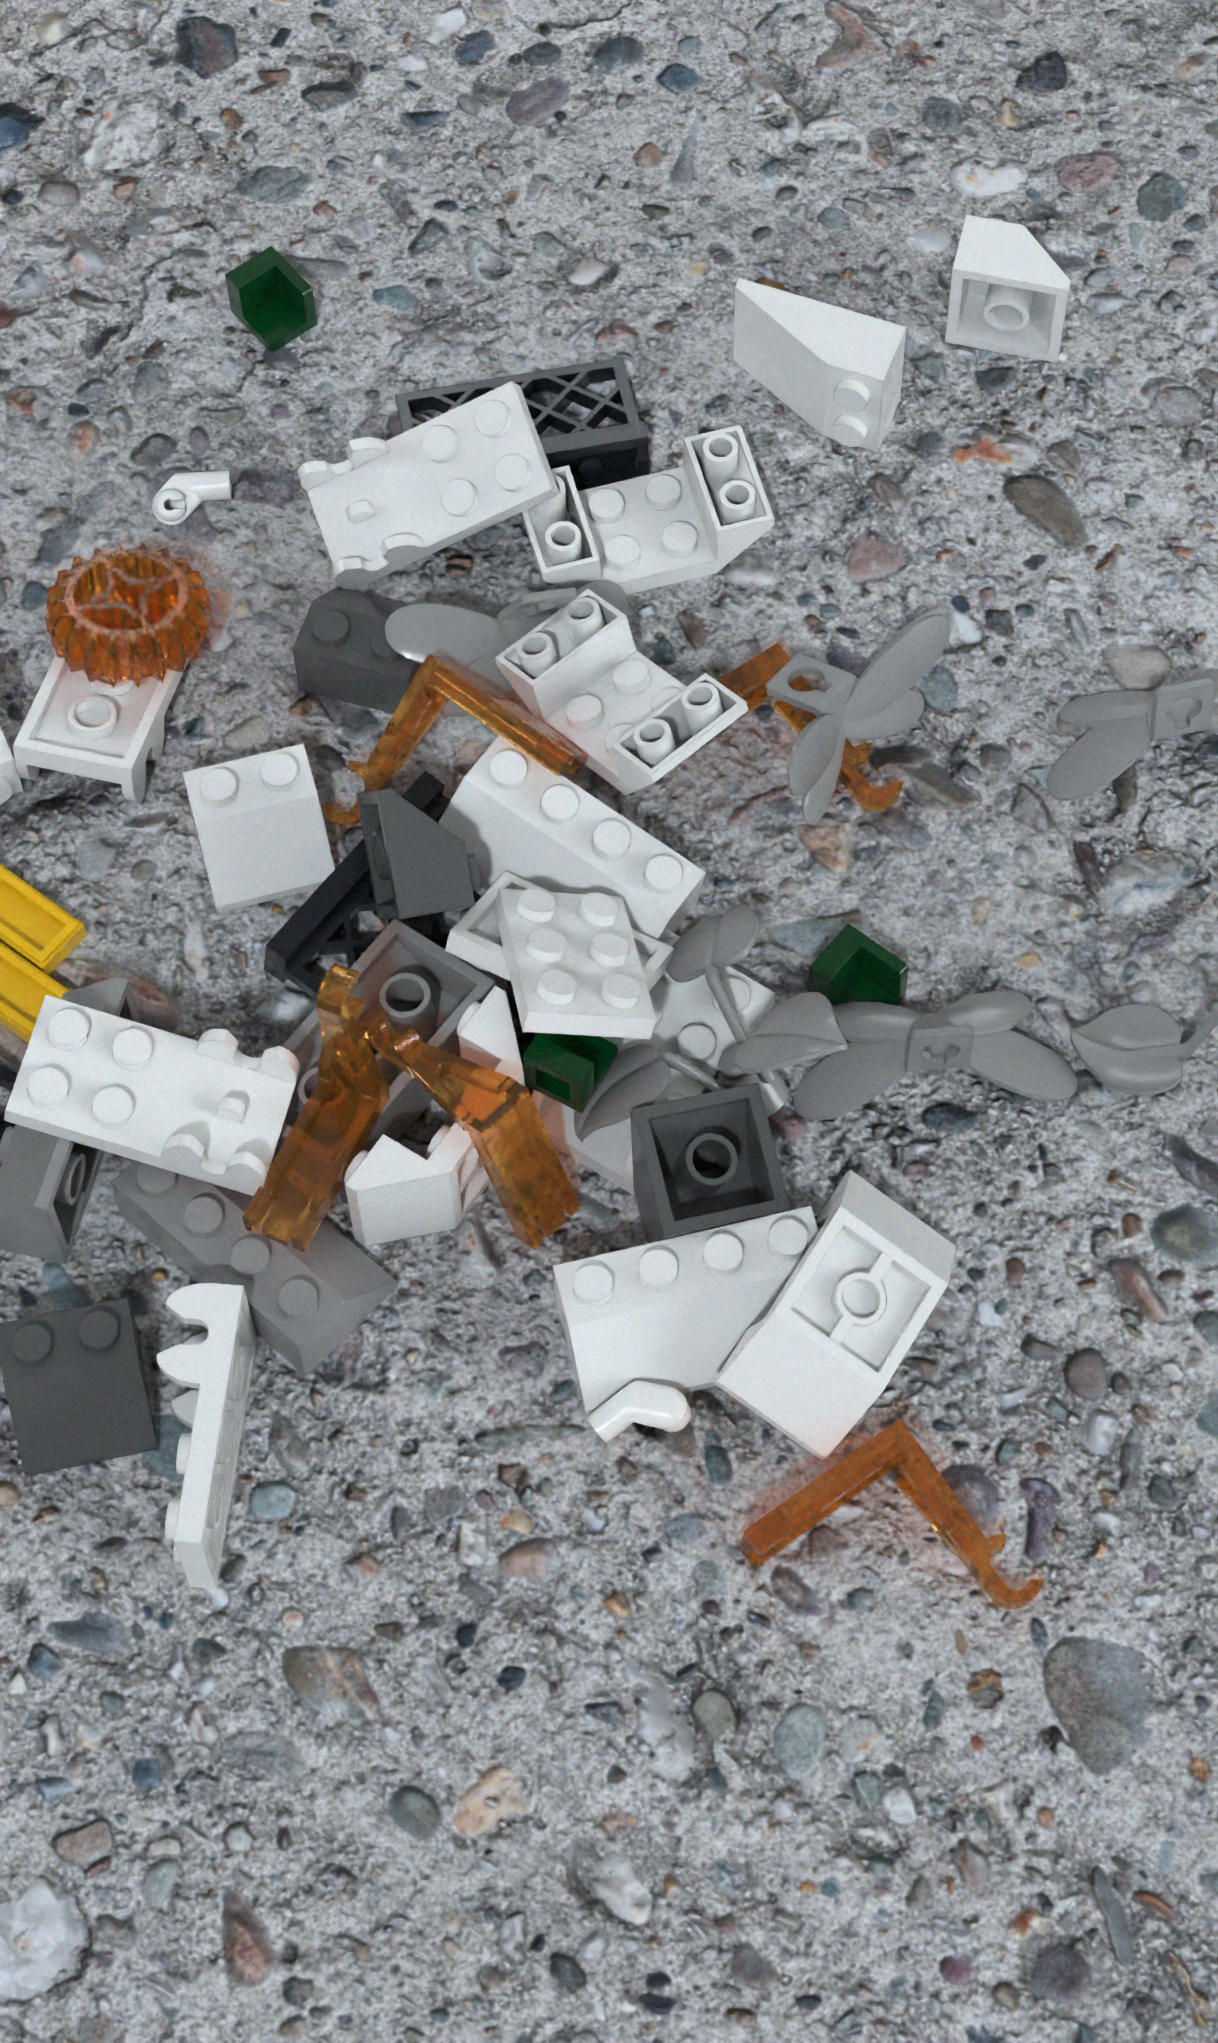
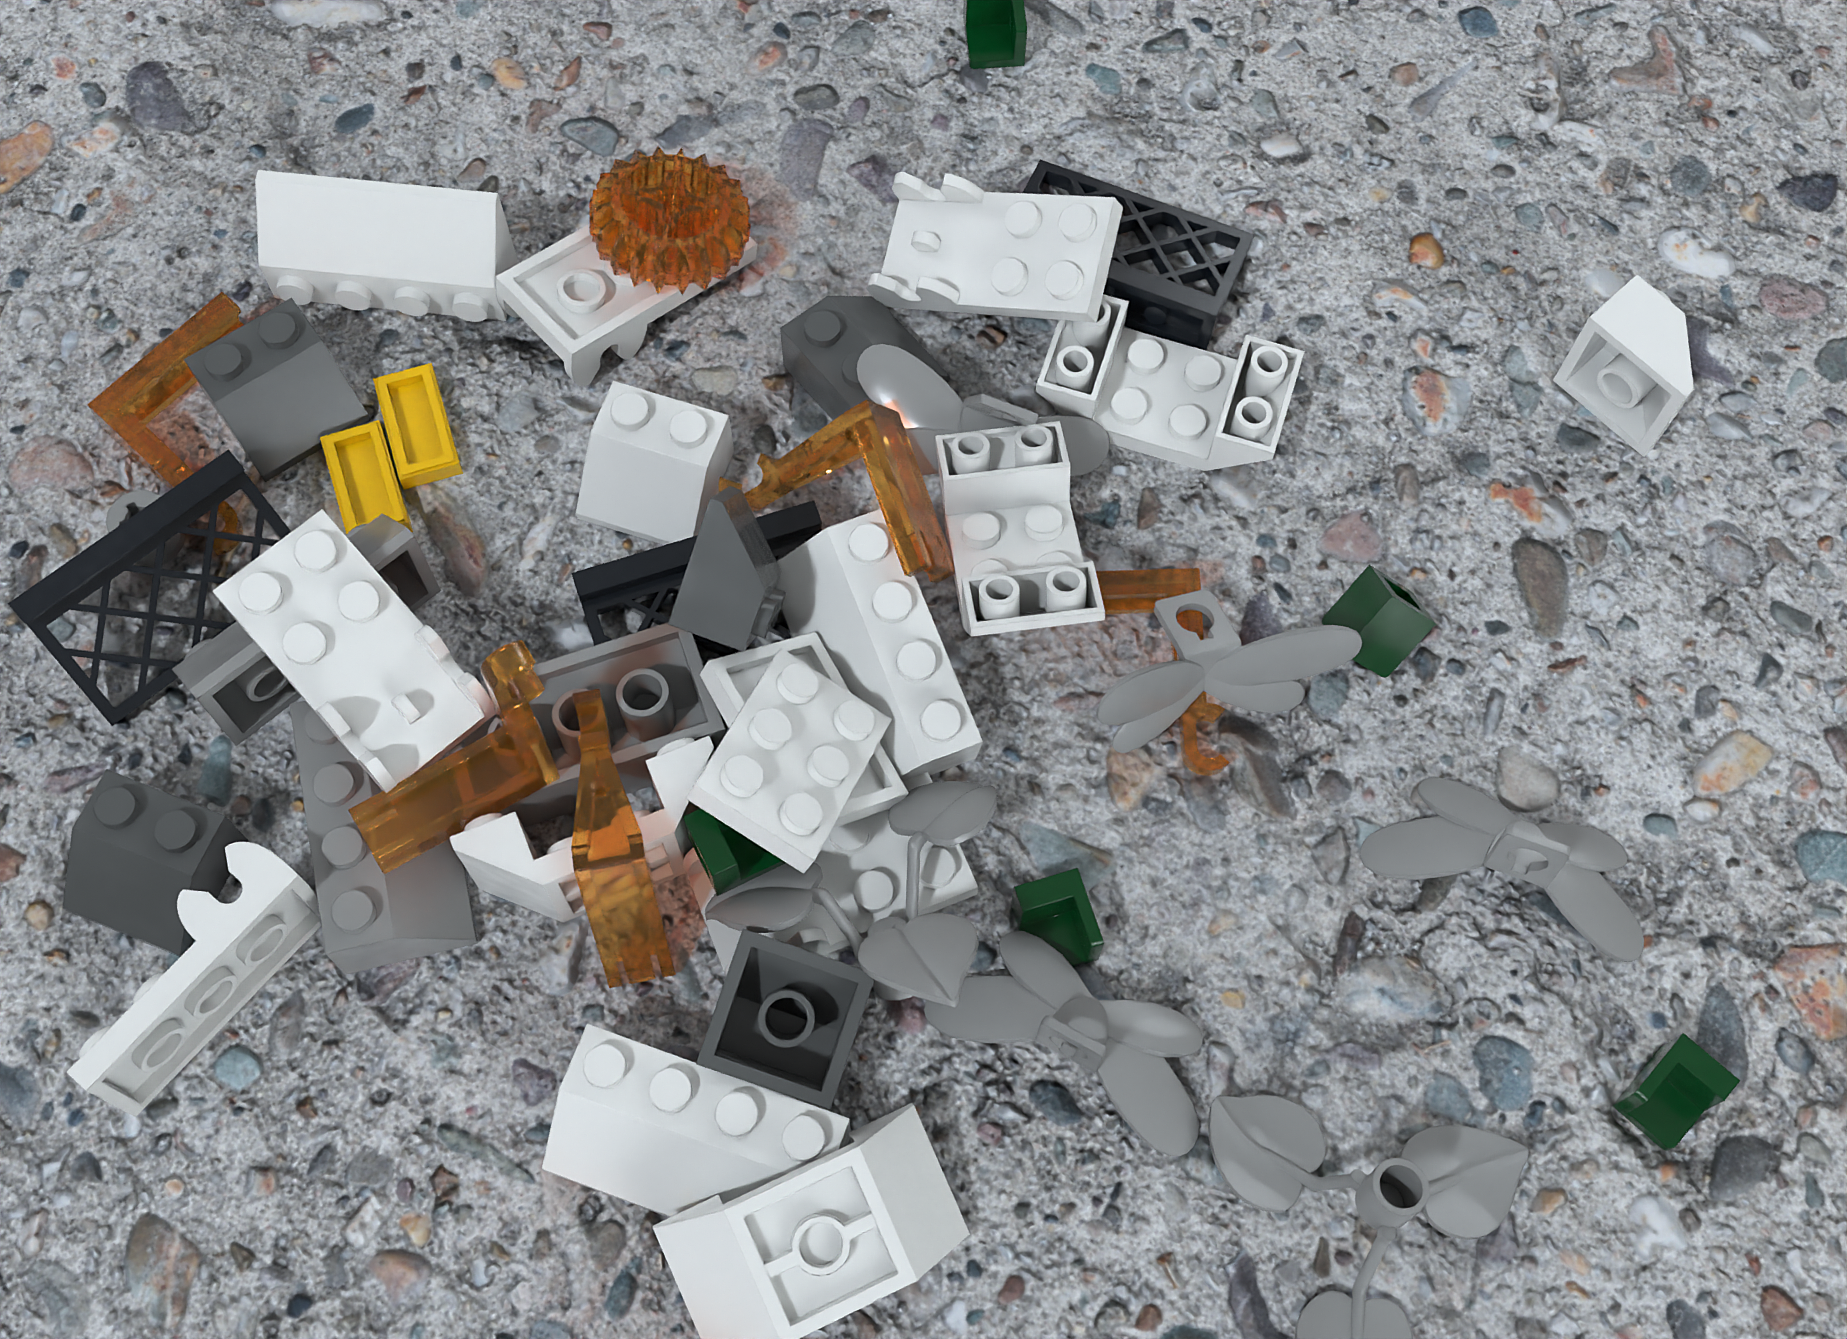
camera: 30 degrees right, 5 degrees up
(187, 491) = (813, 145): white arm -> none
(643, 1404) = (587, 1199): white arm -> none
(821, 361) = (1423, 337): white slope -> none
(948, 593) = (1384, 616): none -> dark green panel

